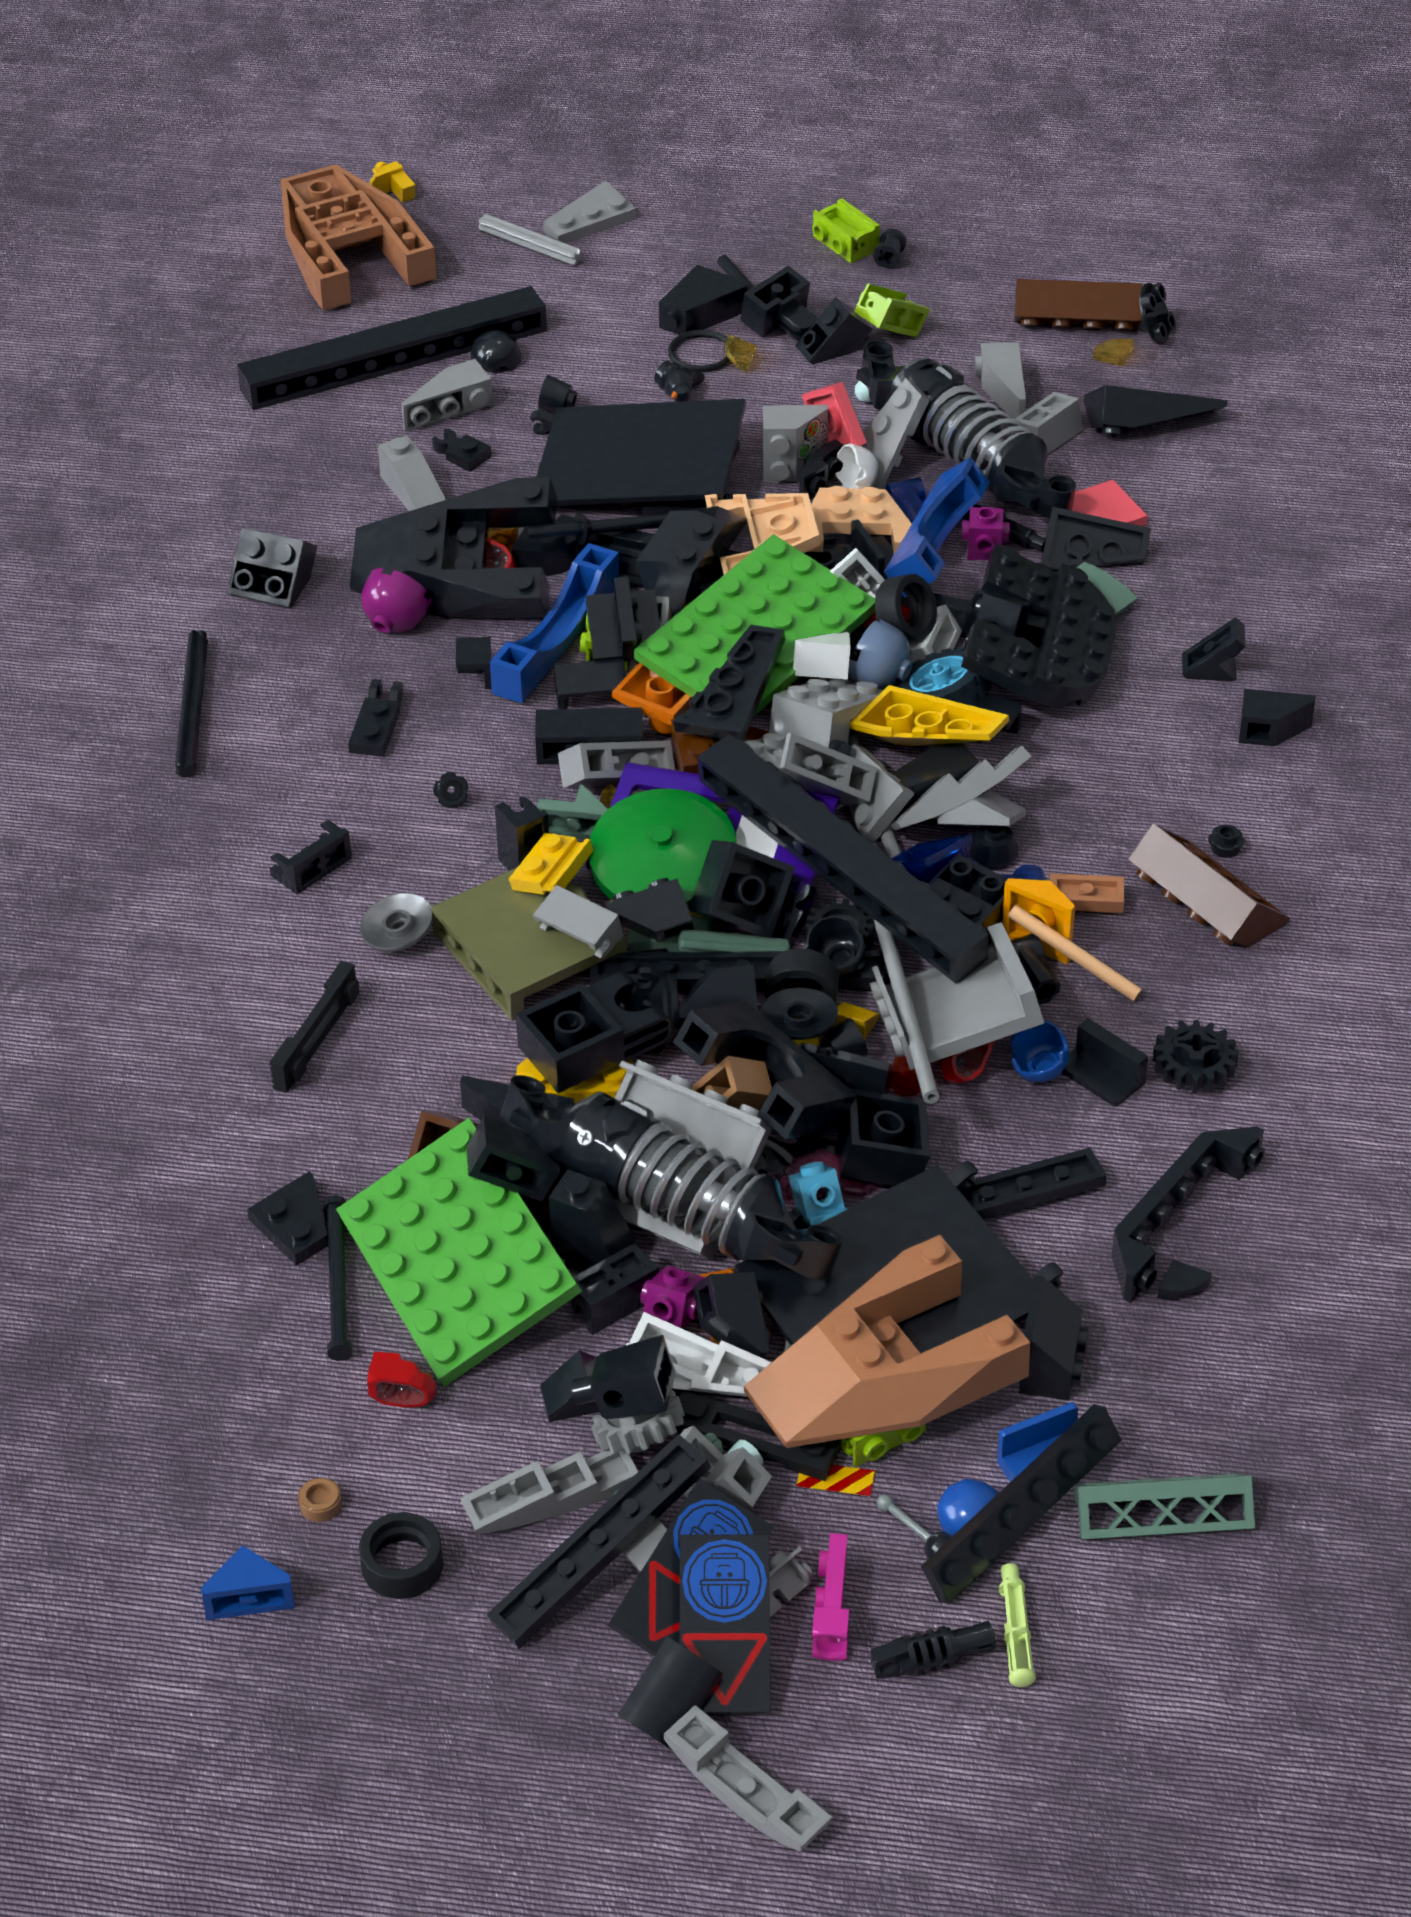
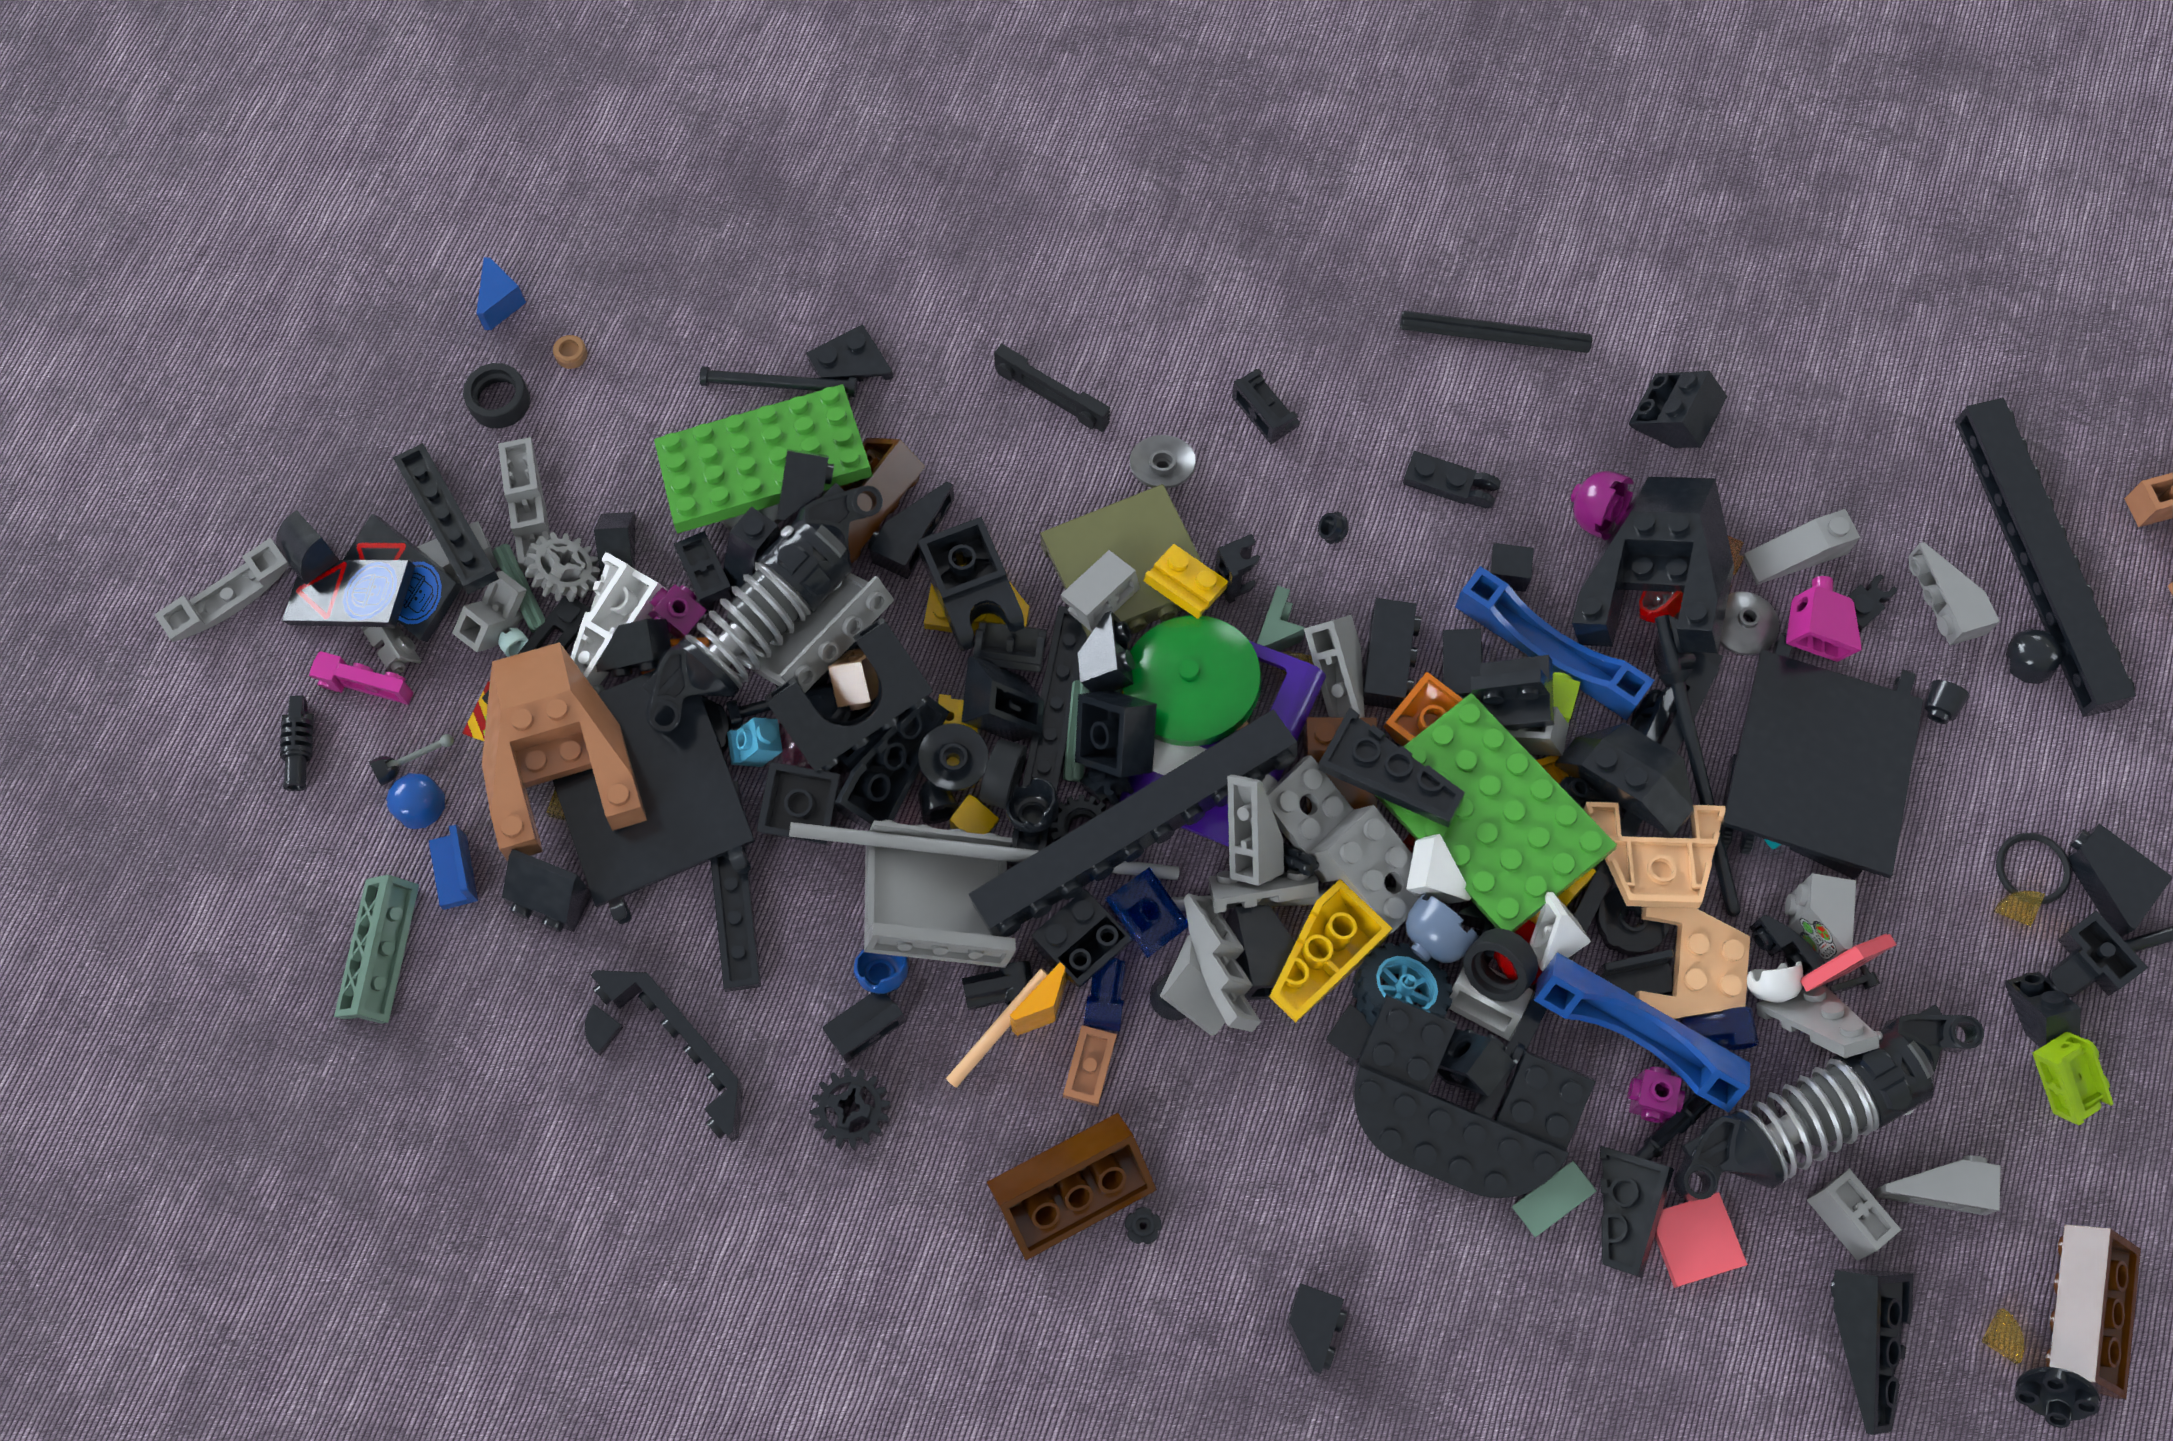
camera: 100 degrees right, 25 degrees up
(399, 1381) = (657, 410): red rock -> none
(504, 460) = (1824, 622): none -> dark pink torso
(629, 1380) = (572, 553): black torso -> none
(677, 380) = (1962, 828): black animal -> none
(1016, 1628) = (300, 809): yellowish green piece -> none
(1021, 1503) = (398, 836): black plate -> none
(1215, 654) = (1422, 1290): black slope -> none

